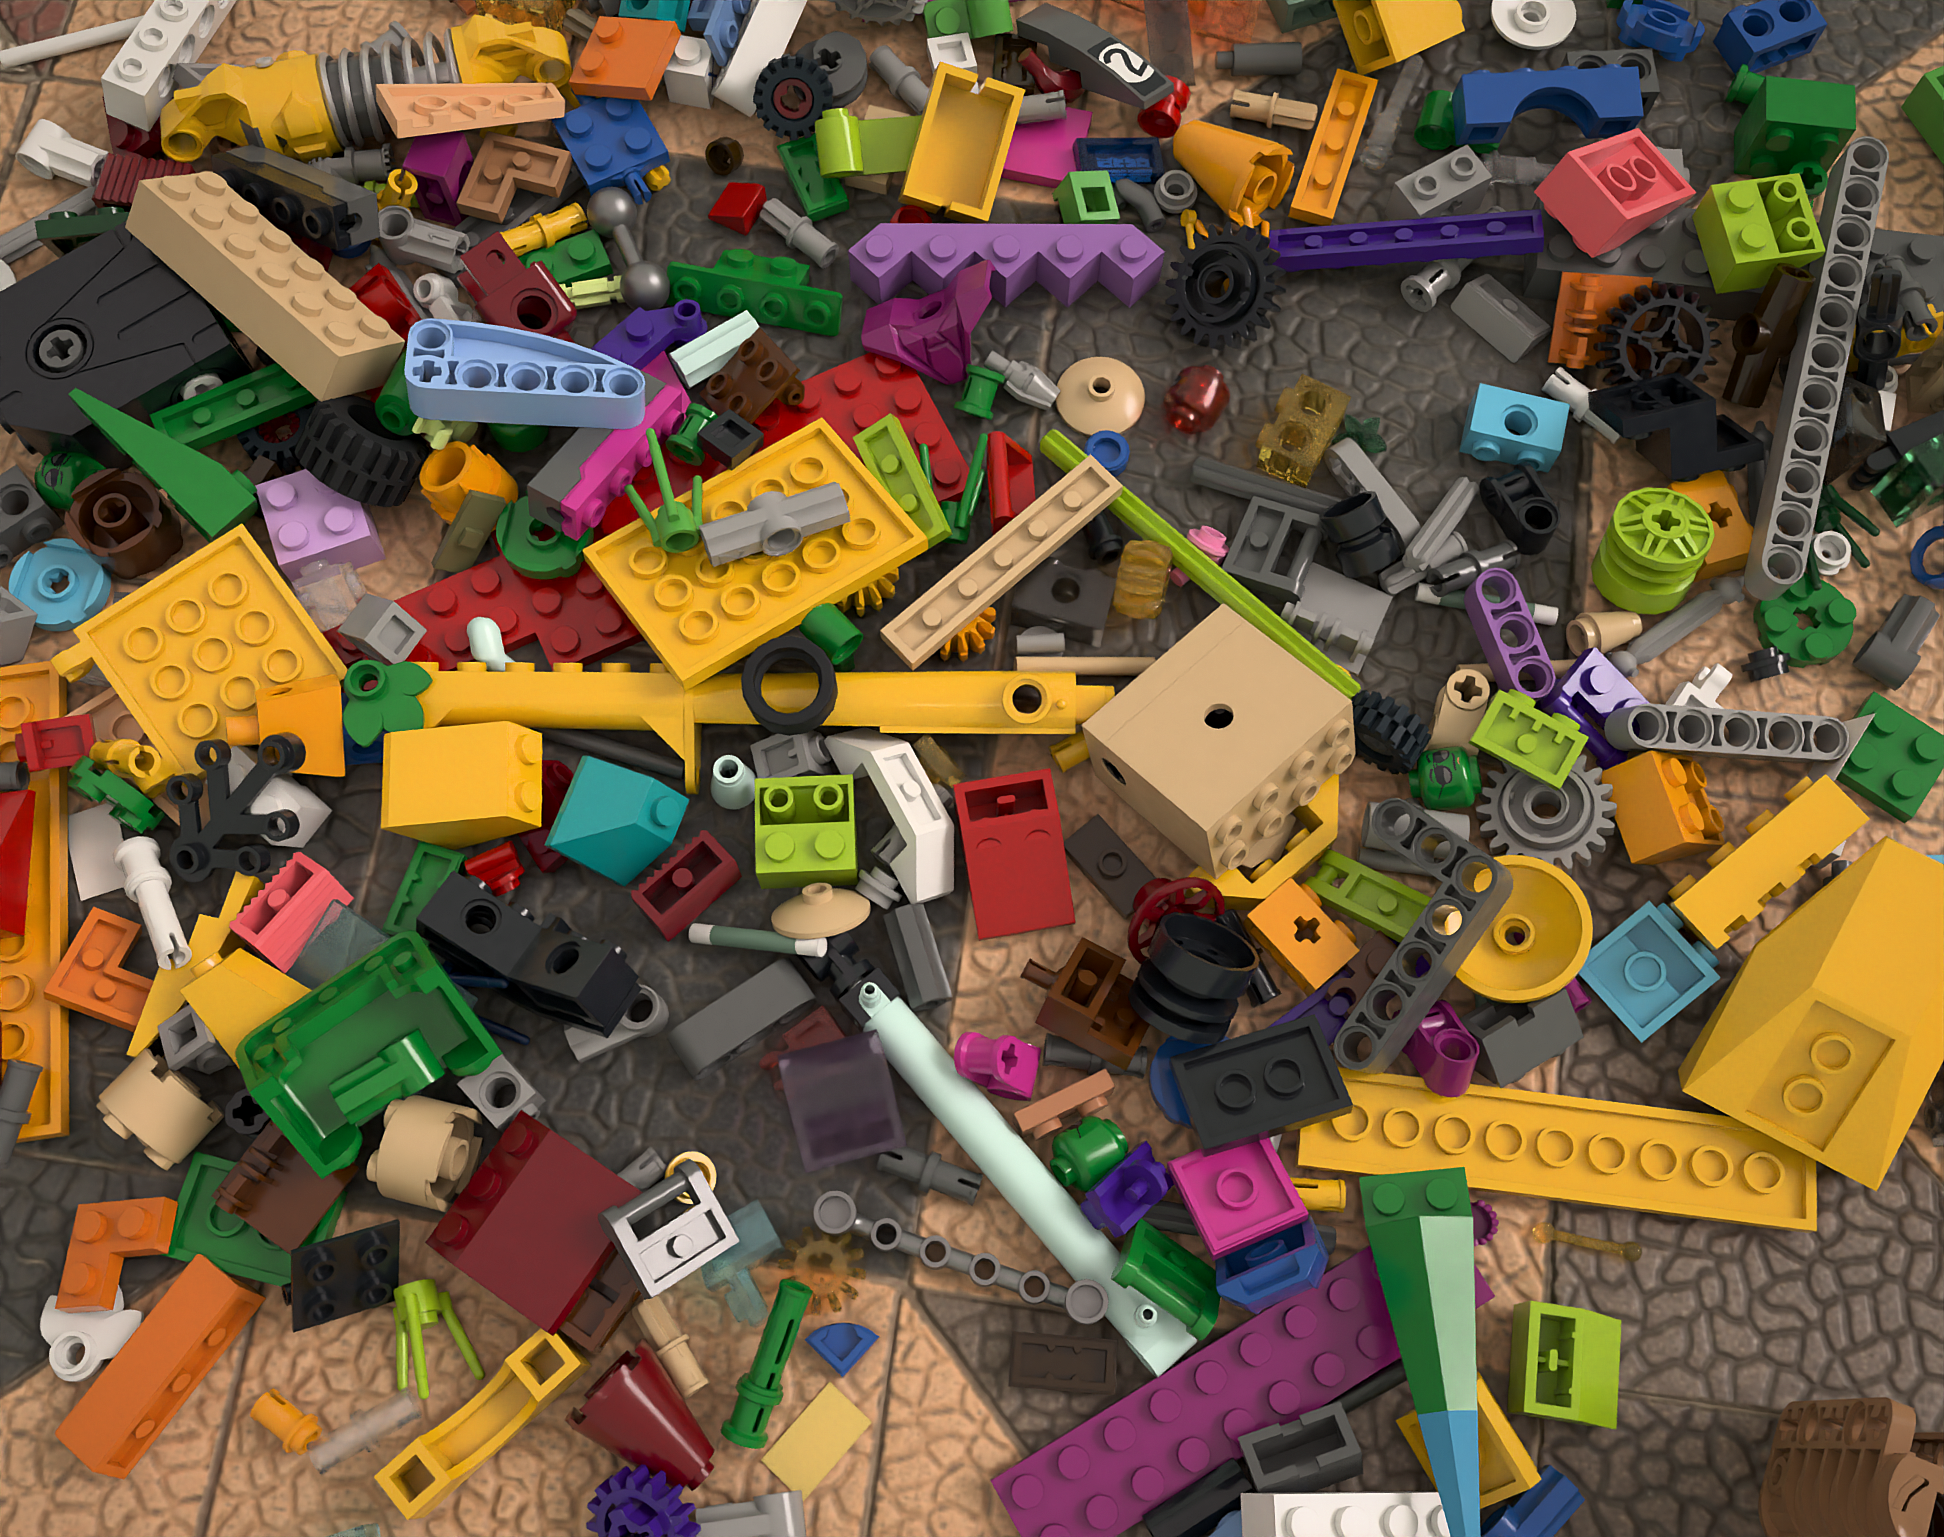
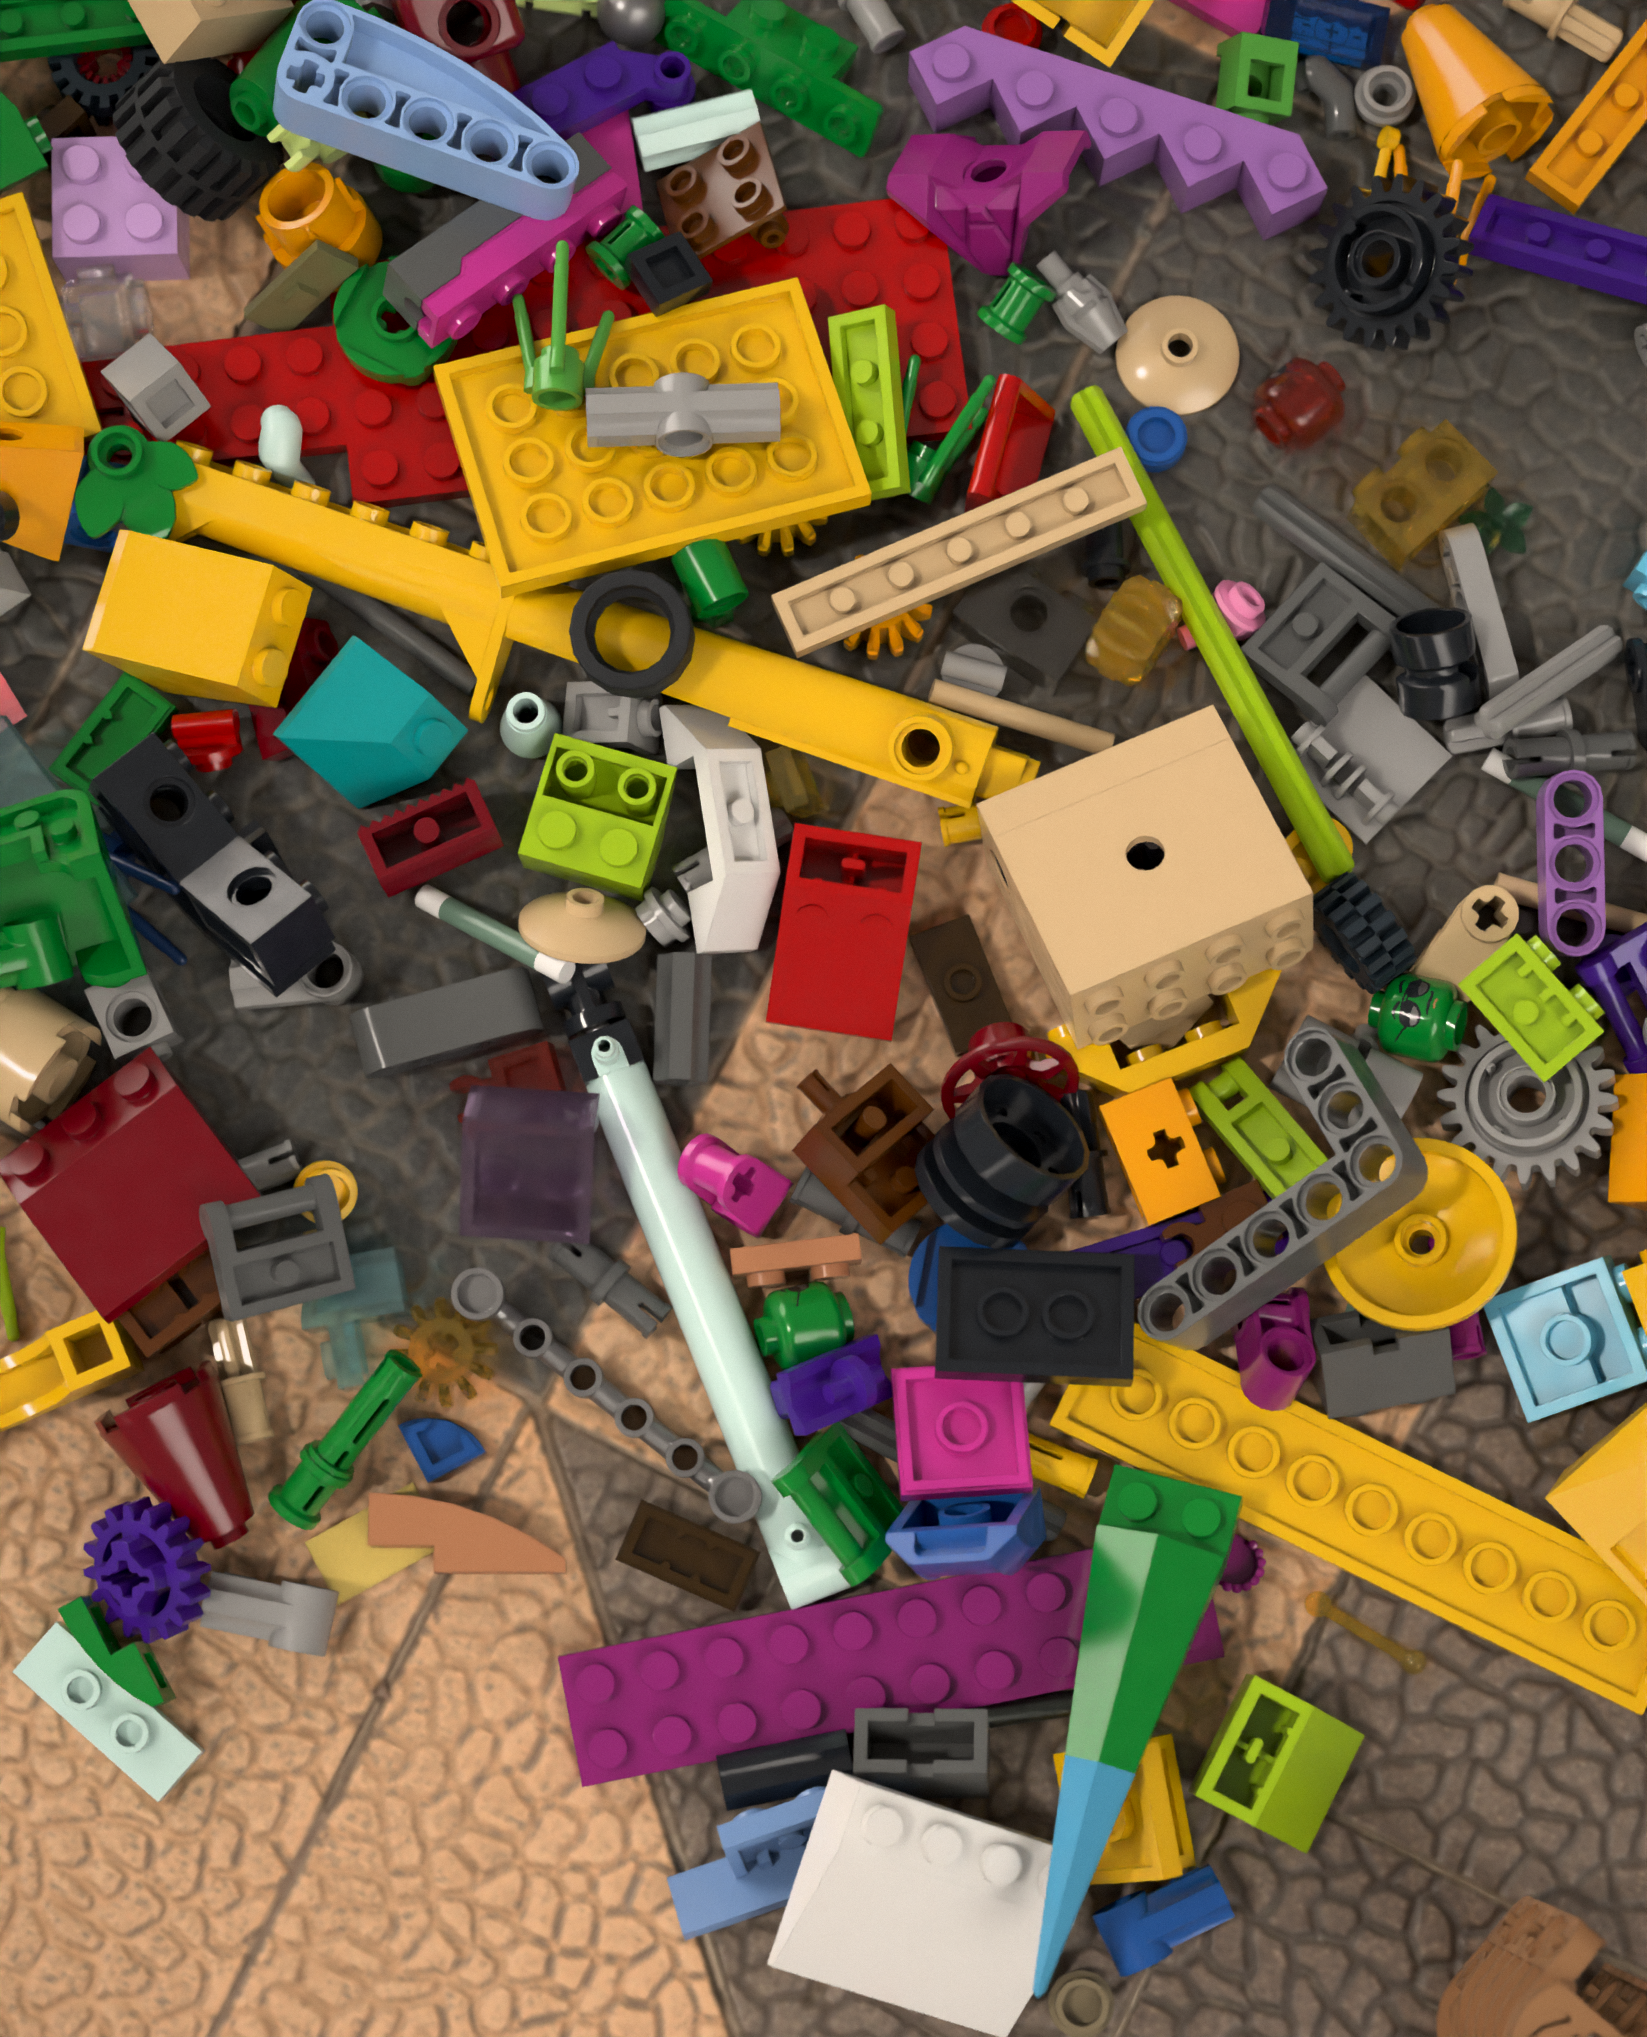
camera: 20 degrees right, 10 degrees up
(884, 1410) = (460, 1537): none -> nougat slope

